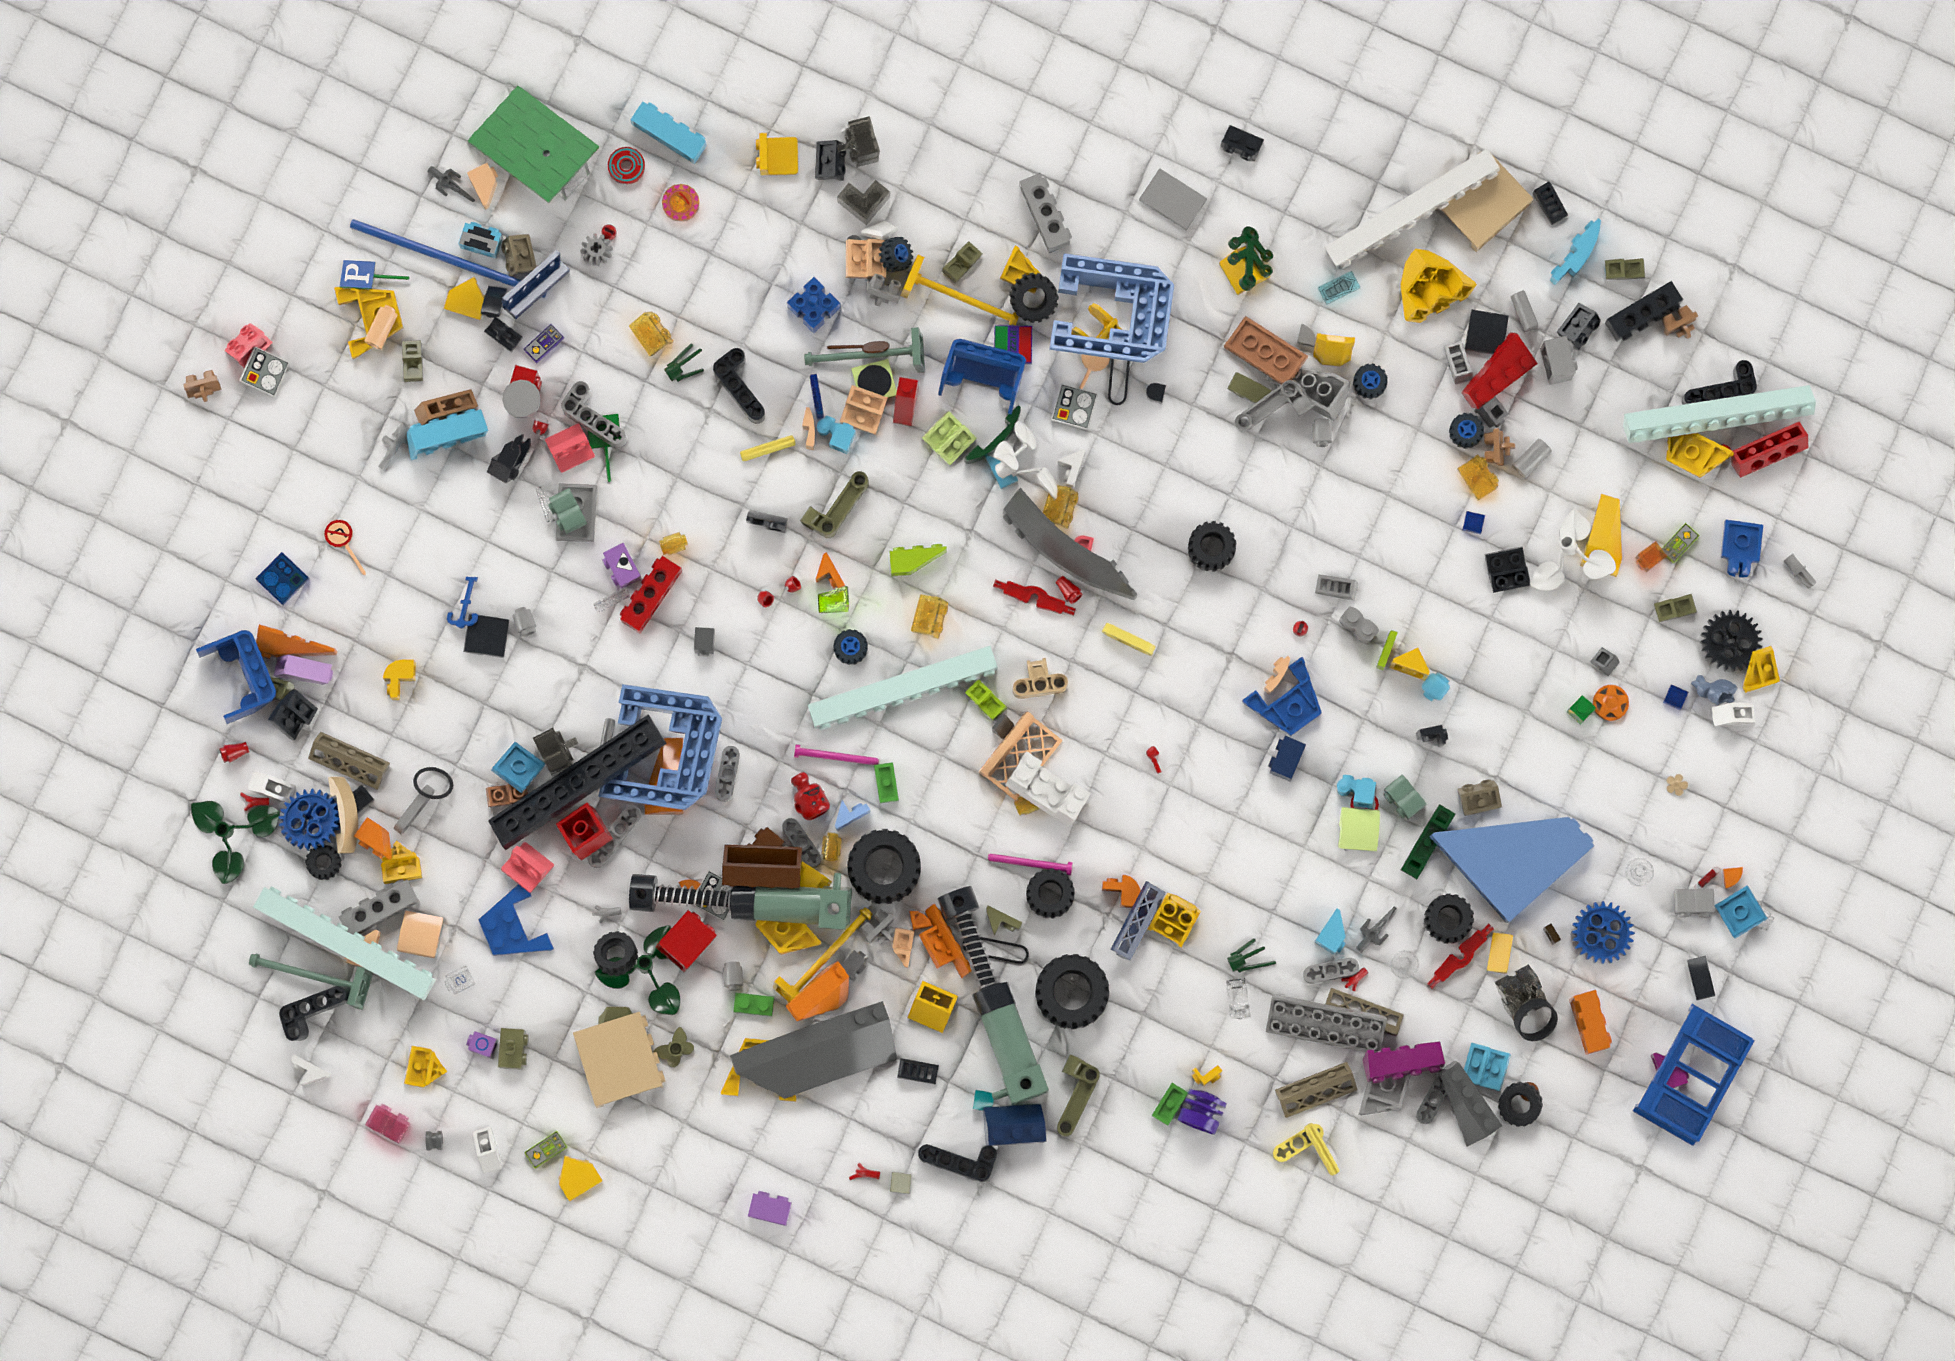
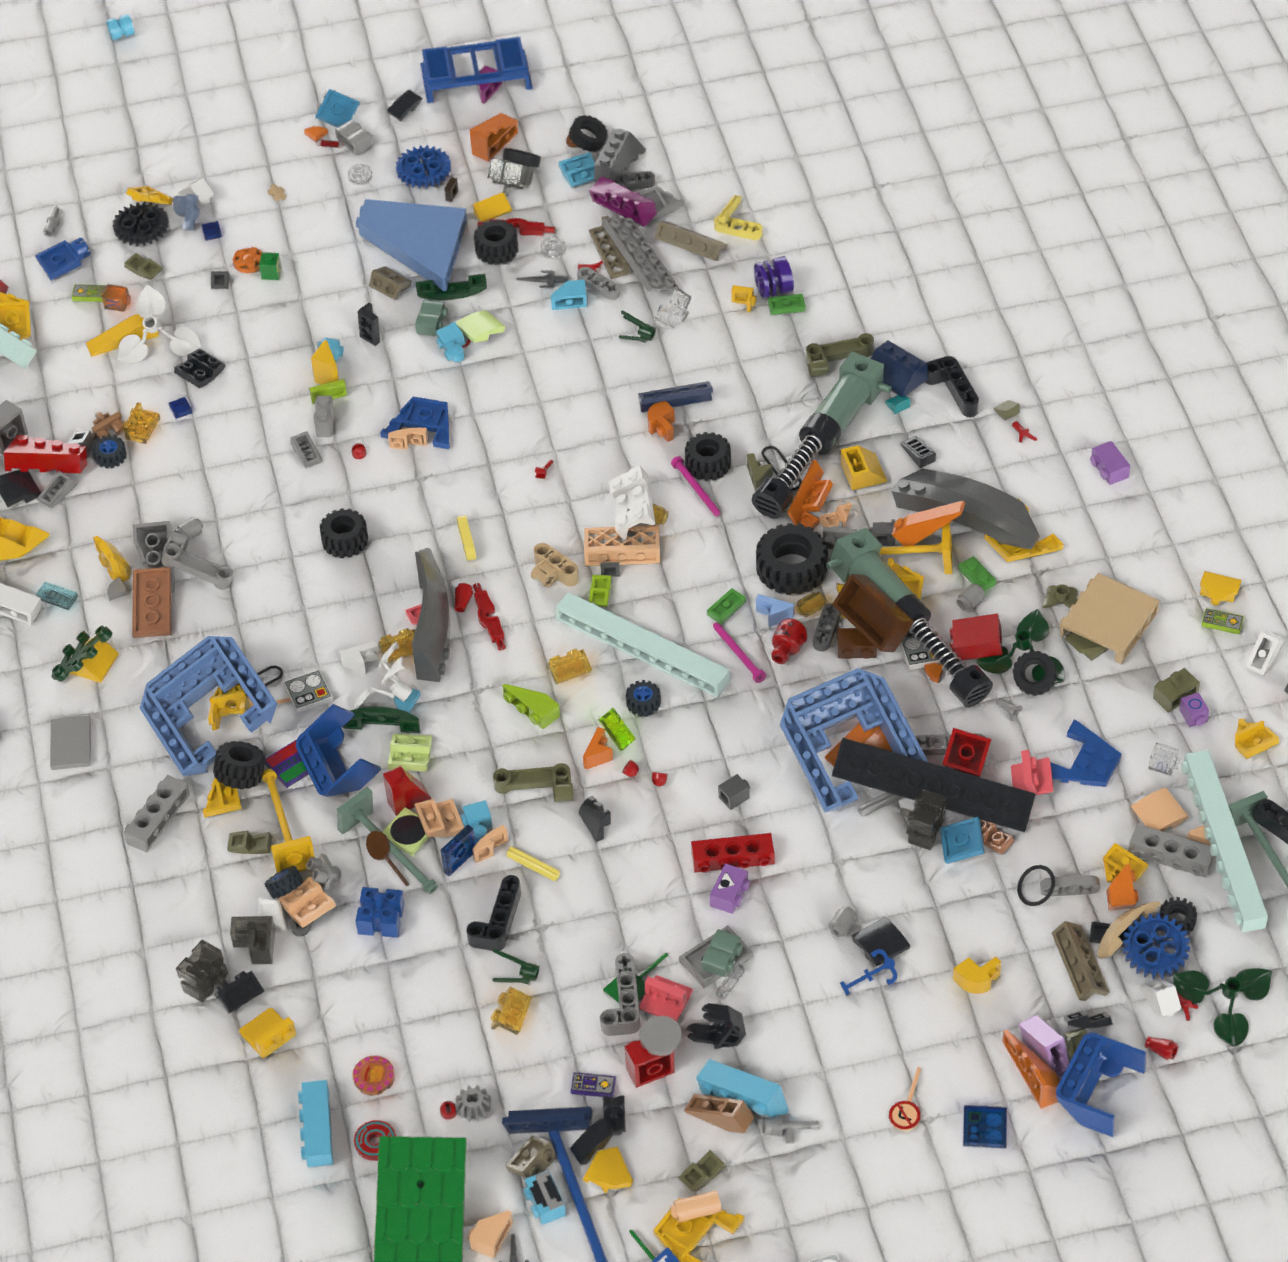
camera: 125 degrees left, 30 degrees down
(611, 600) = (765, 879): clear axle -> none
(673, 543) = (676, 867): clear yellow brick -> none
(1072, 965) = (766, 380): black tyre -> none
(1155, 392) = (249, 649): black tile -> none
(1175, 918) = (649, 378): yellow slope -> none
(1247, 388) = (193, 594): olive slope -> none
(1287, 758) = (466, 394): dark blue piece -> none
(1369, 375) = (118, 528): black wheel -> none
(1532, 458) = (94, 404): light grey brick -> none

